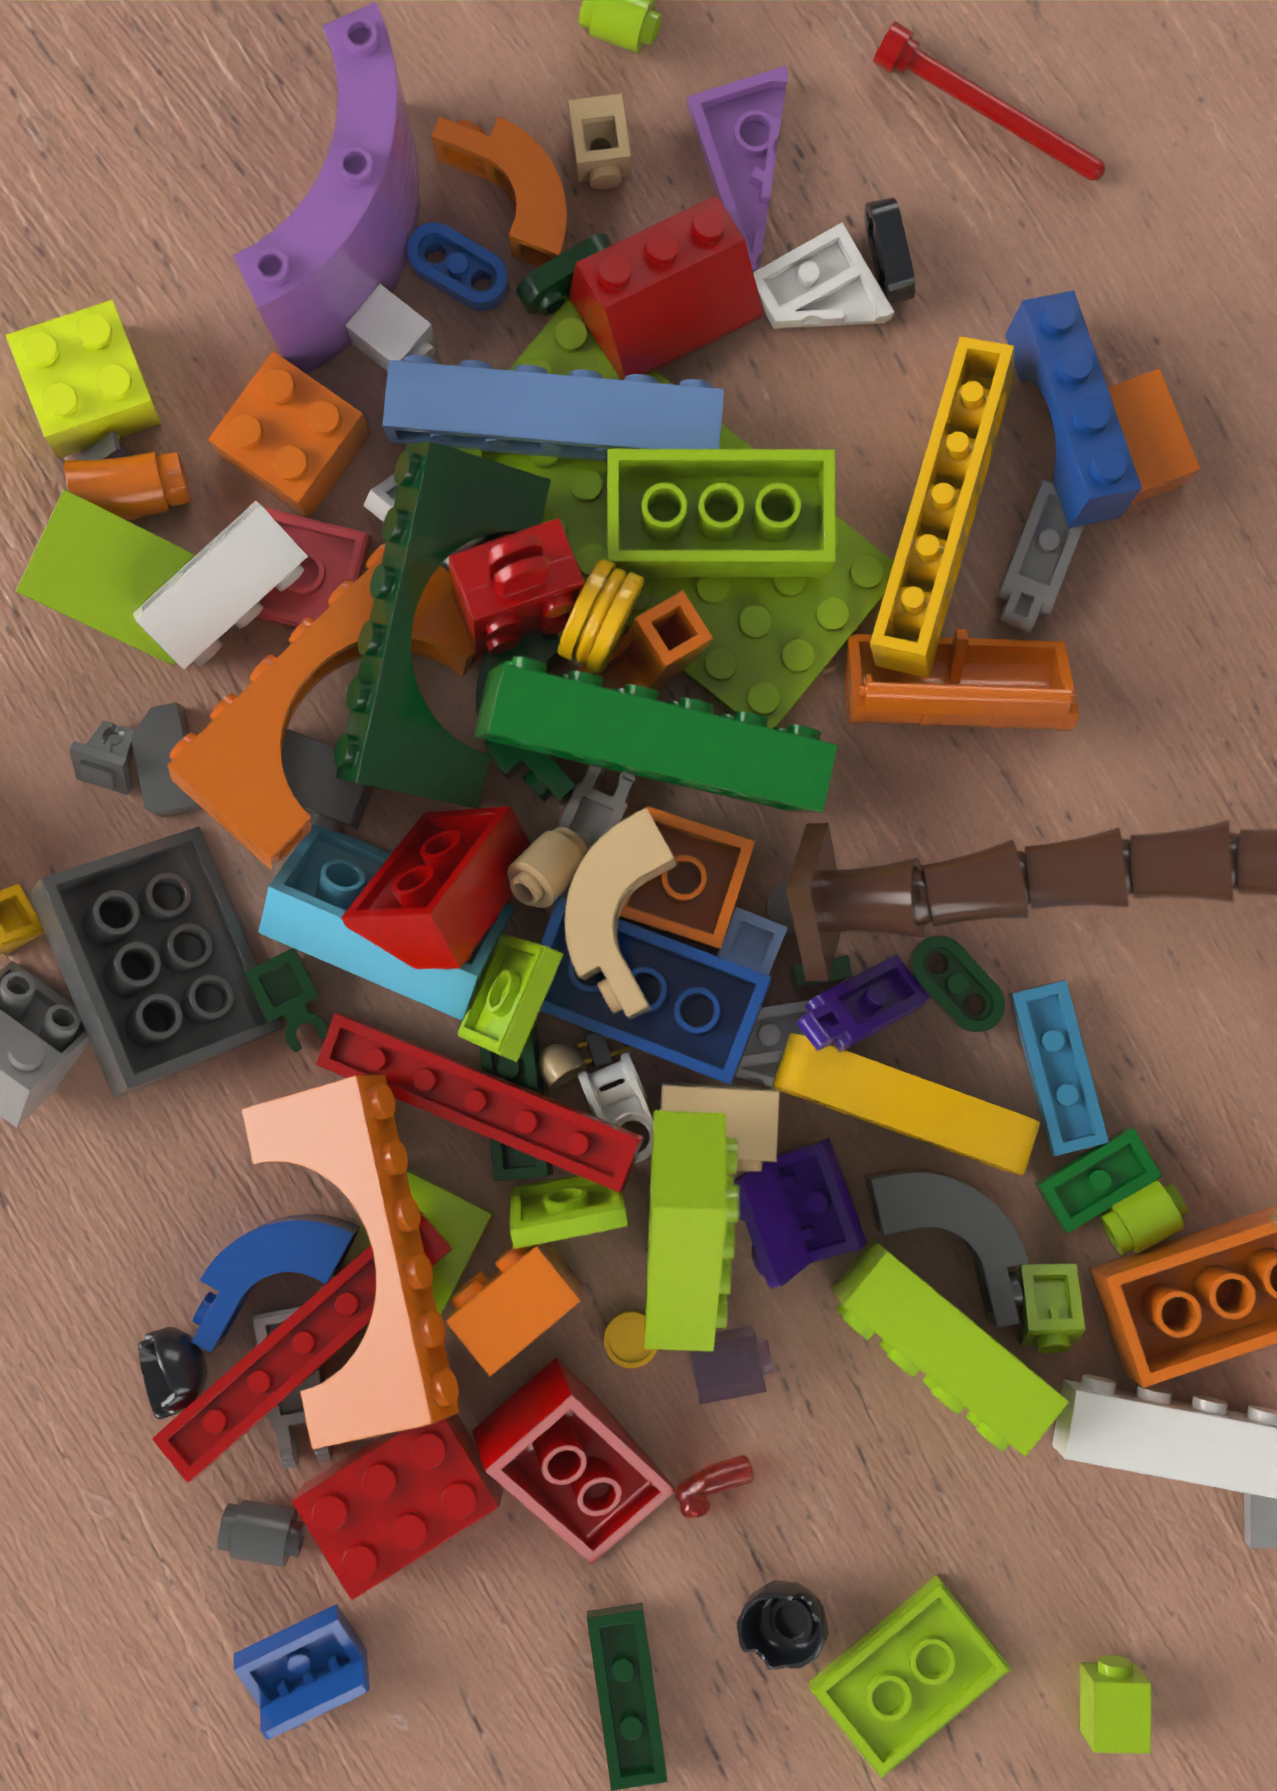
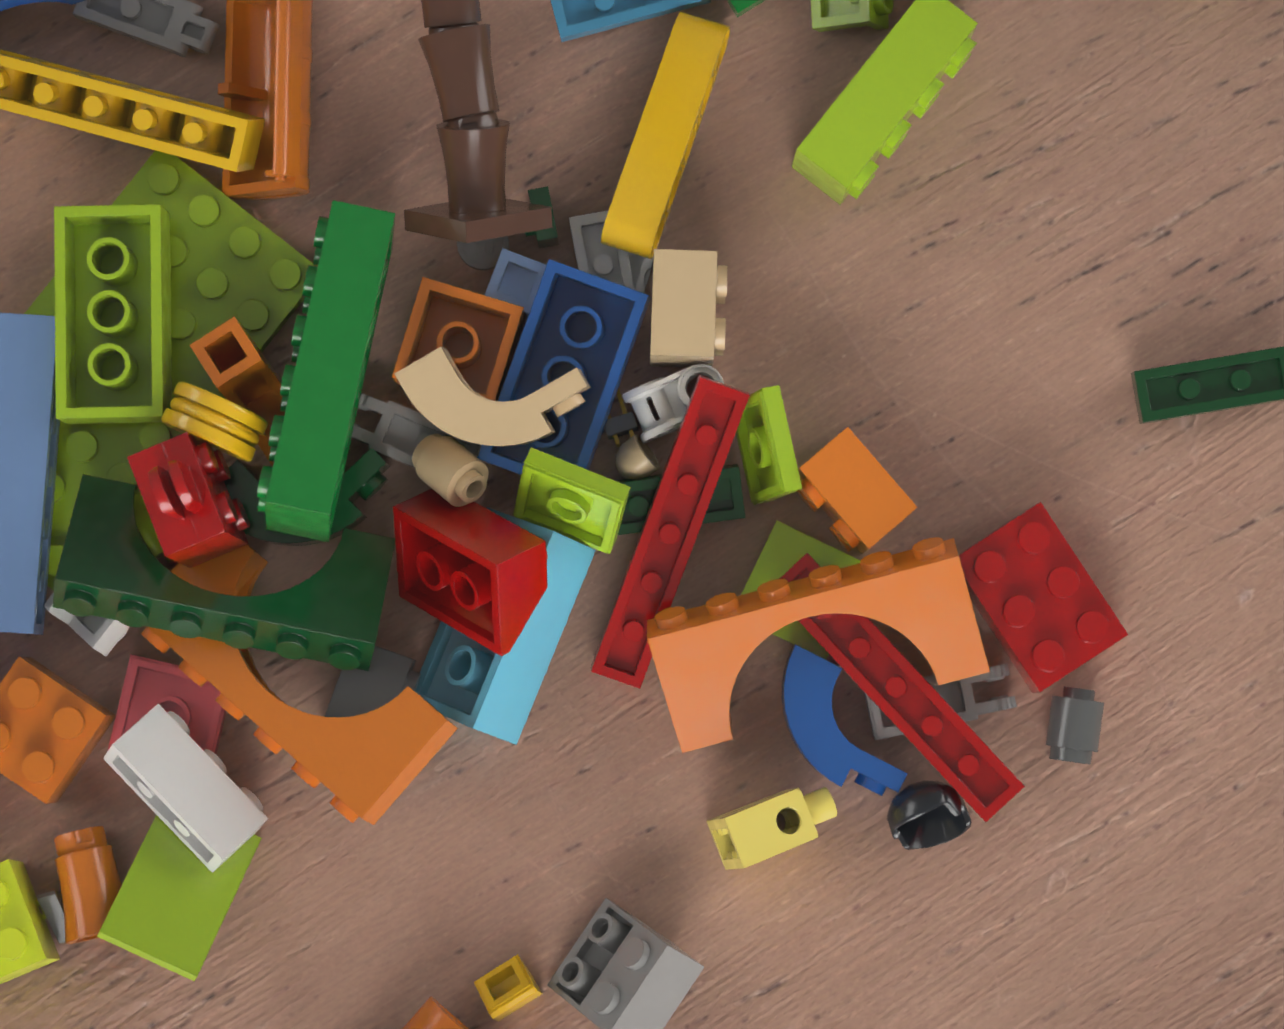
camera: 85 degrees left, 0 degrees up
(105, 758) = (352, 898): dark grey brick -> none
(152, 745) = (353, 845): dark grey piece -> none
(152, 959) = (544, 845): dark grey slope -> none
(161, 1200) = (752, 833): none -> light yellow torso
(284, 989) = (570, 720): dark green plate -> none
(304, 1671) = (1198, 682): blue bracket -> none
(570, 1461) = (1002, 439): red slope -> none
(626, 1340) = (890, 389): yellow piece -> none
(690, 1230) = (781, 328): lime brick -> none
(710, 1480) = (1016, 312): clear red arm -> none
(734, 1366) = (909, 296): clear purple brick -> none
(783, 1625) = (1144, 242): black hair -> none
(798, 1212) = (765, 233): dark purple bracket -> none
(862, 1005) = (574, 175): dark purple hinge -> none
(909, 1676) = (1190, 127): lime tile -> none
(926, 1198) = (752, 115): dark grey arch -> none
(956, 982) = (551, 90): dark green plate -> none

